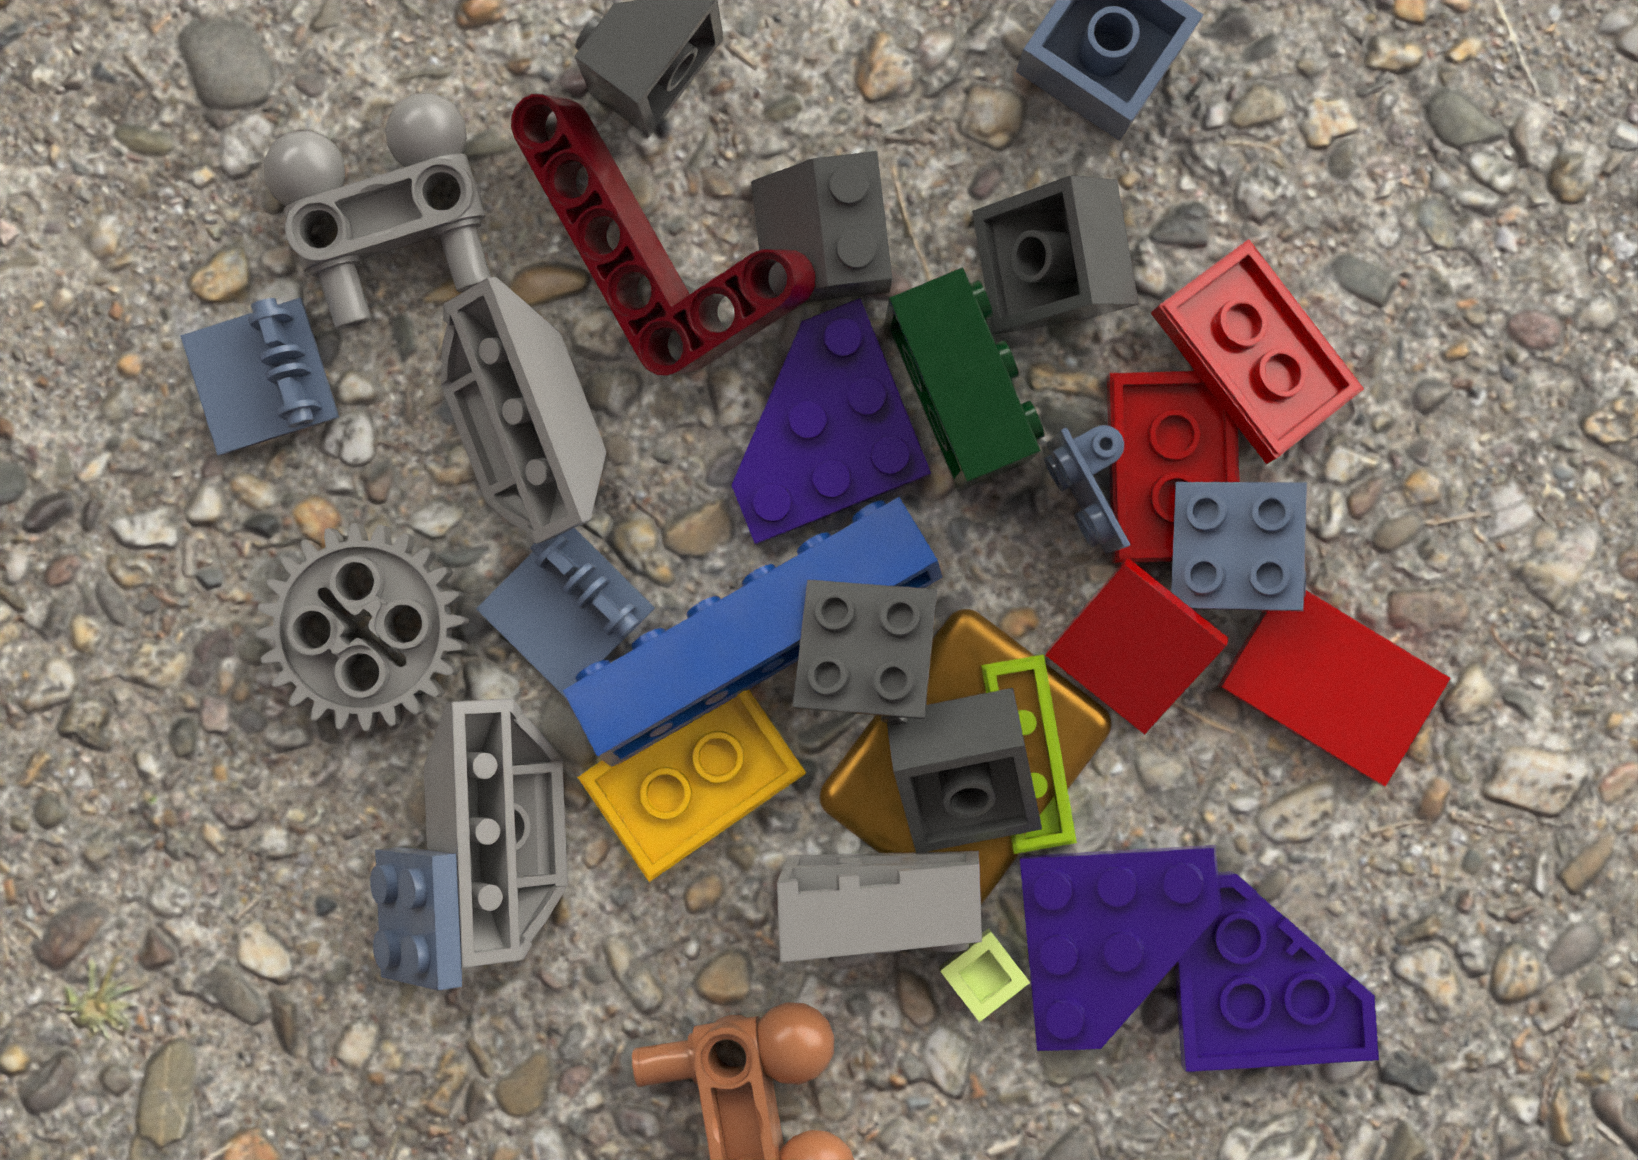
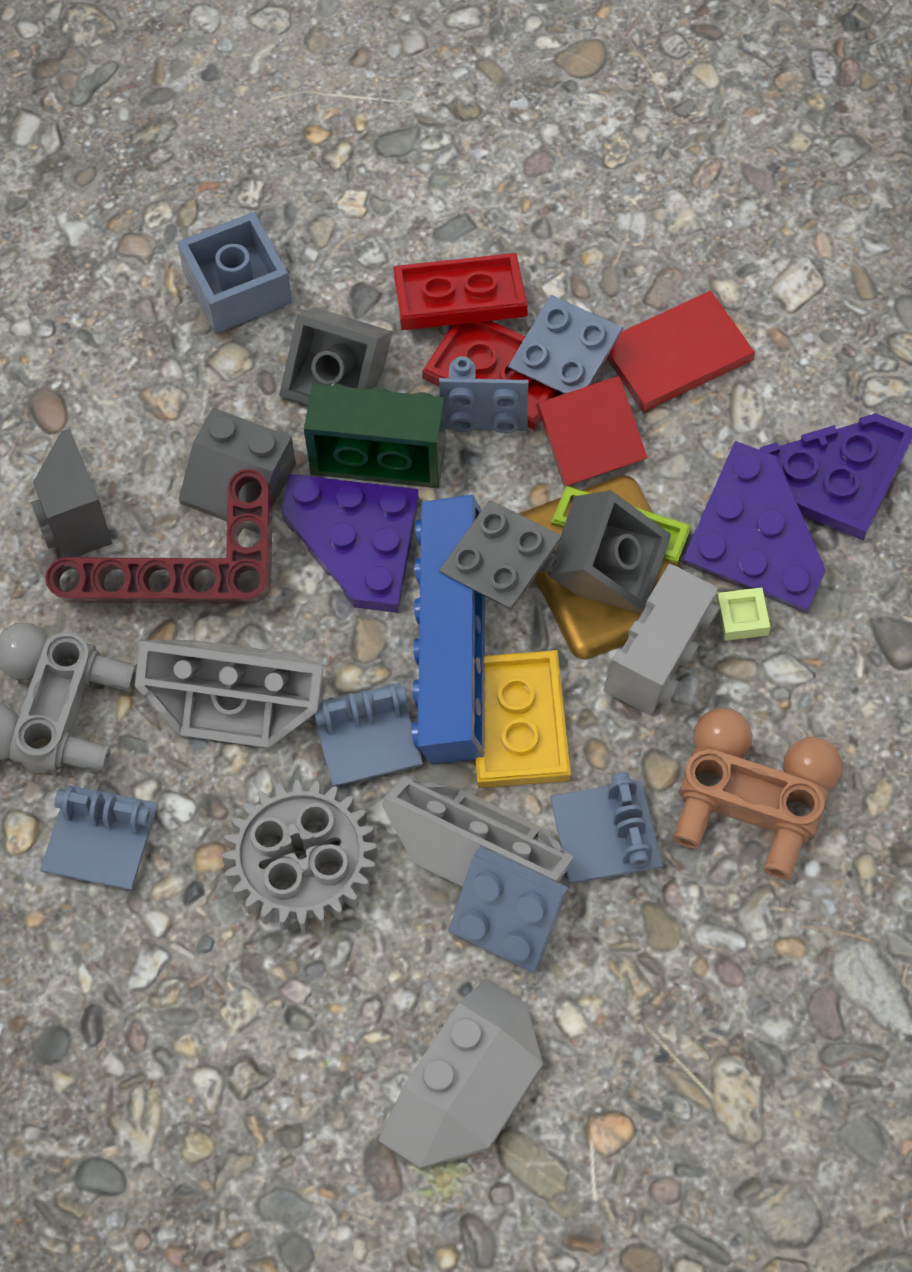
camera: 60 degrees left, 25 degrees down
(214, 978) = (466, 1081): none -> light grey wedge
(603, 963) = (606, 830): none -> sand blue hinge

